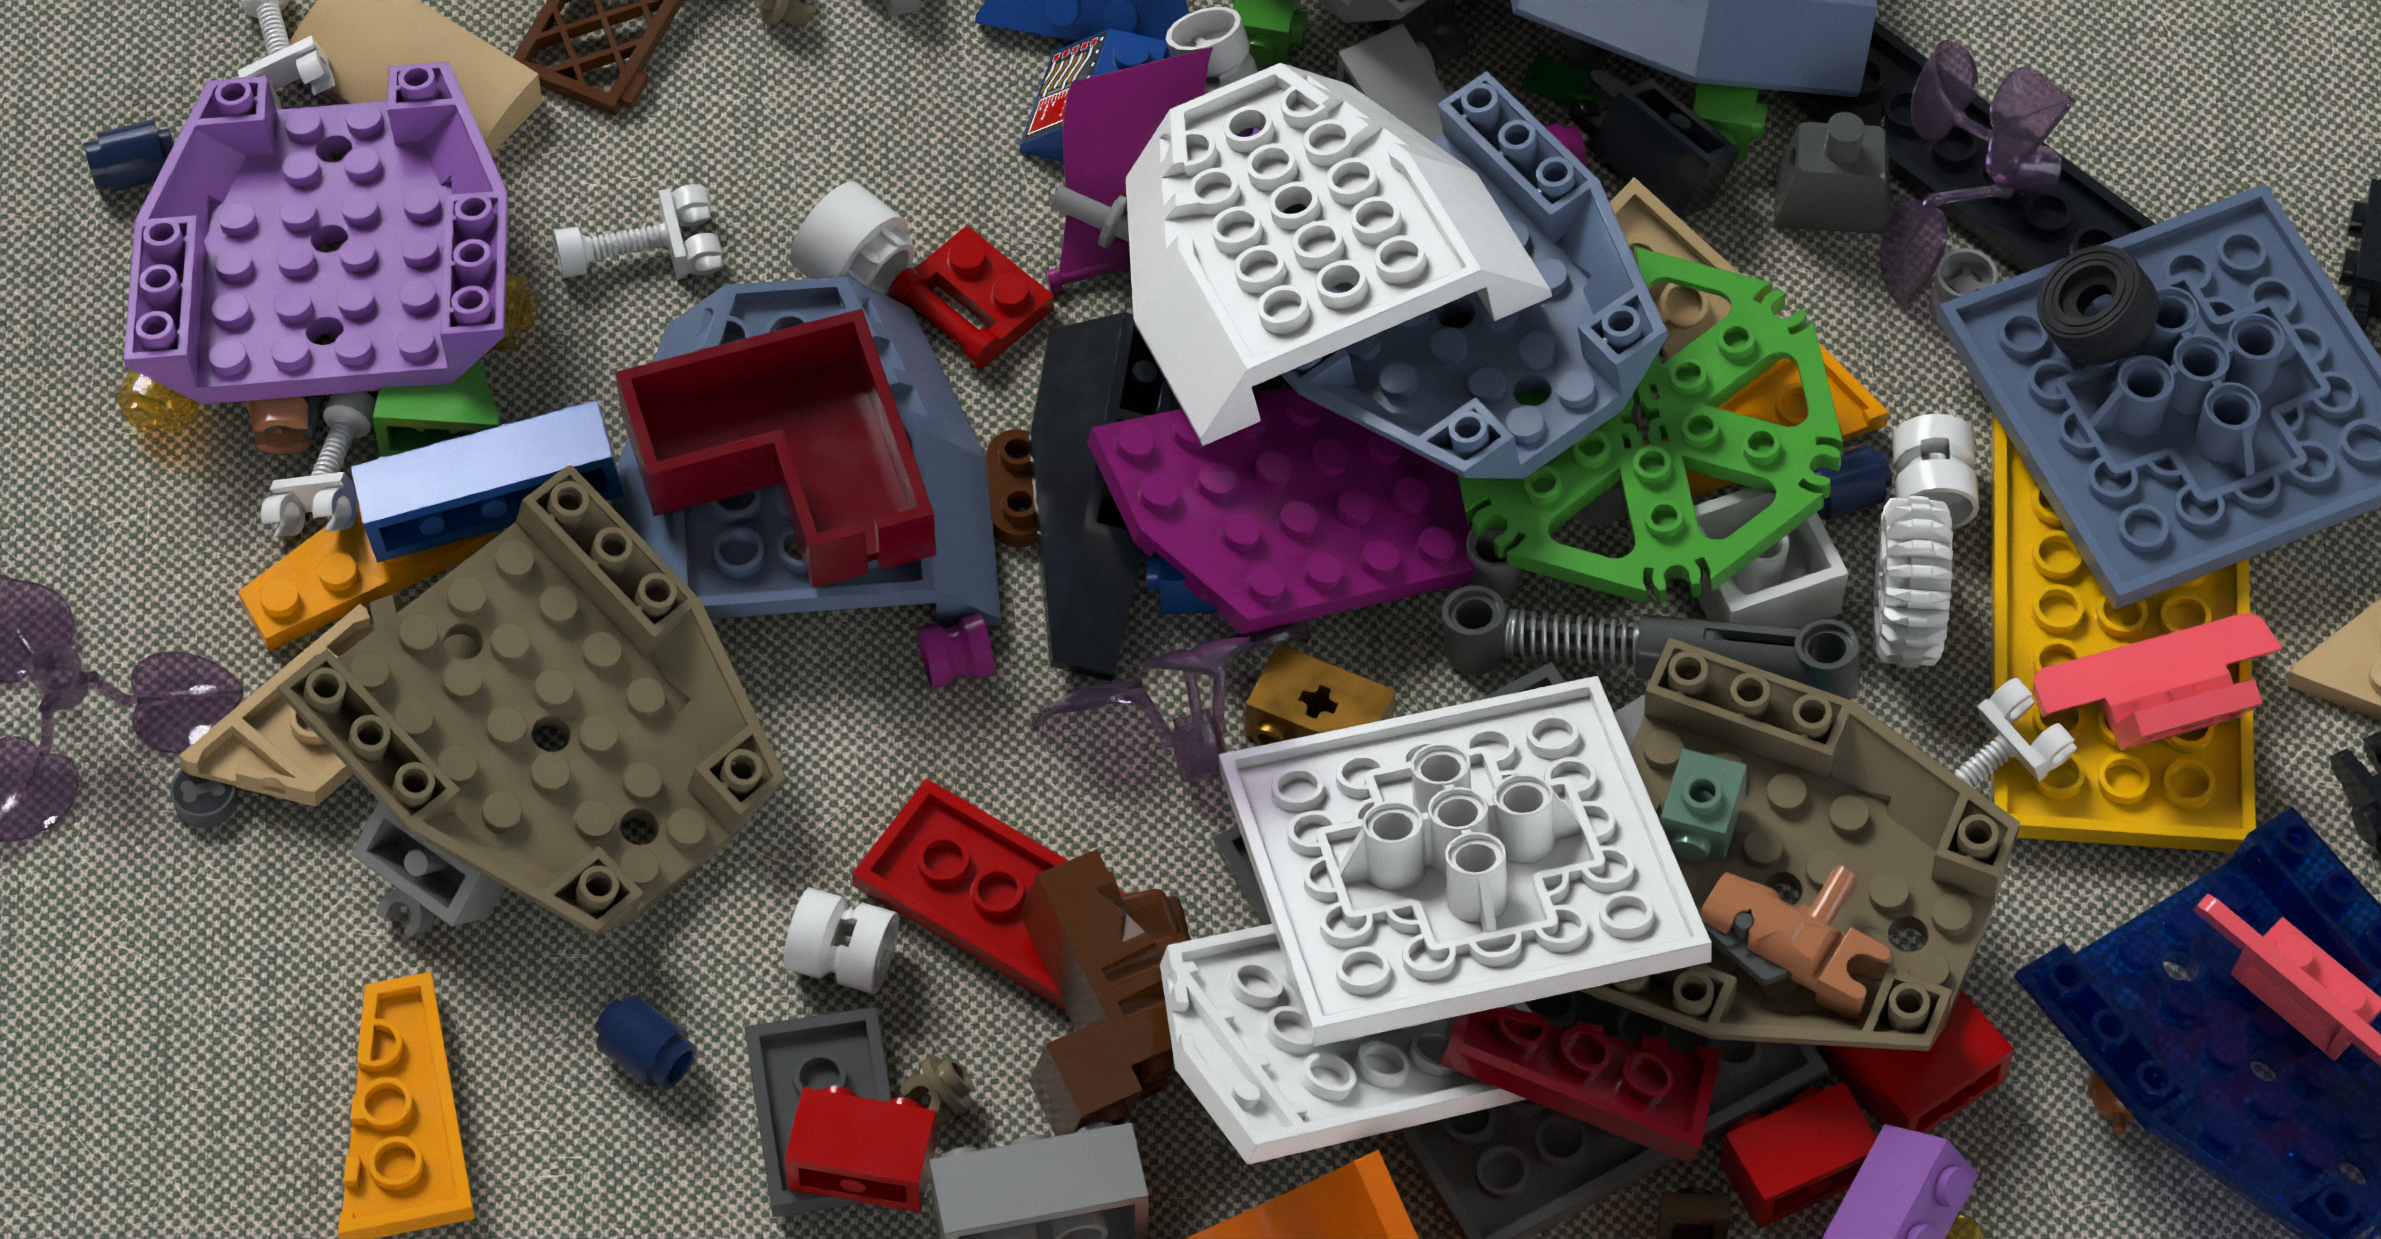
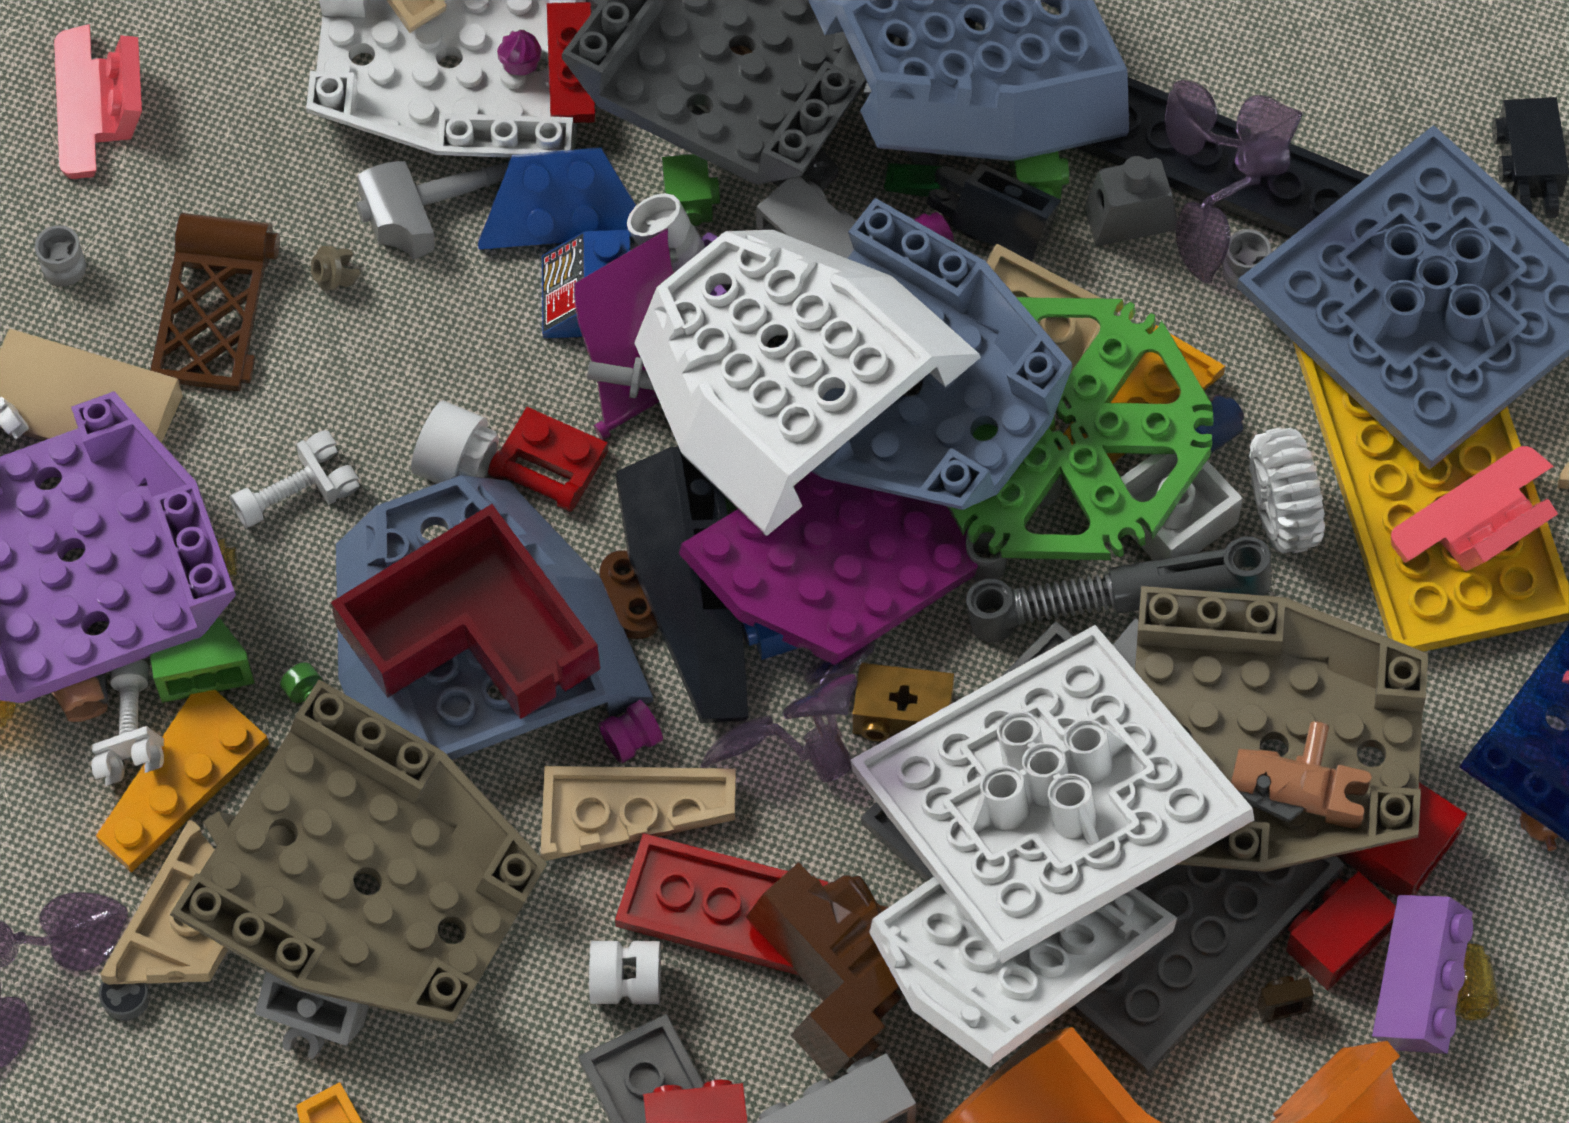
camera: 15 degrees left, 5 degrees up
(478, 479) = (251, 703): brick -> none
(644, 1042) = (510, 1088): dark blue brick -> none
(899, 734) = (616, 805): none -> tan wing
(947, 1084) = (735, 1055): dark tan plate -> none
(1609, 1082) = (1205, 923): dark red wing -> none
(1703, 806) = (1205, 703): sand green brick -> none
(1937, 461) = (1271, 397): white wheel -> none
(2002, 709) = (1375, 571): white bar -> none
(2116, 328) = (1373, 266): black tyre -> none

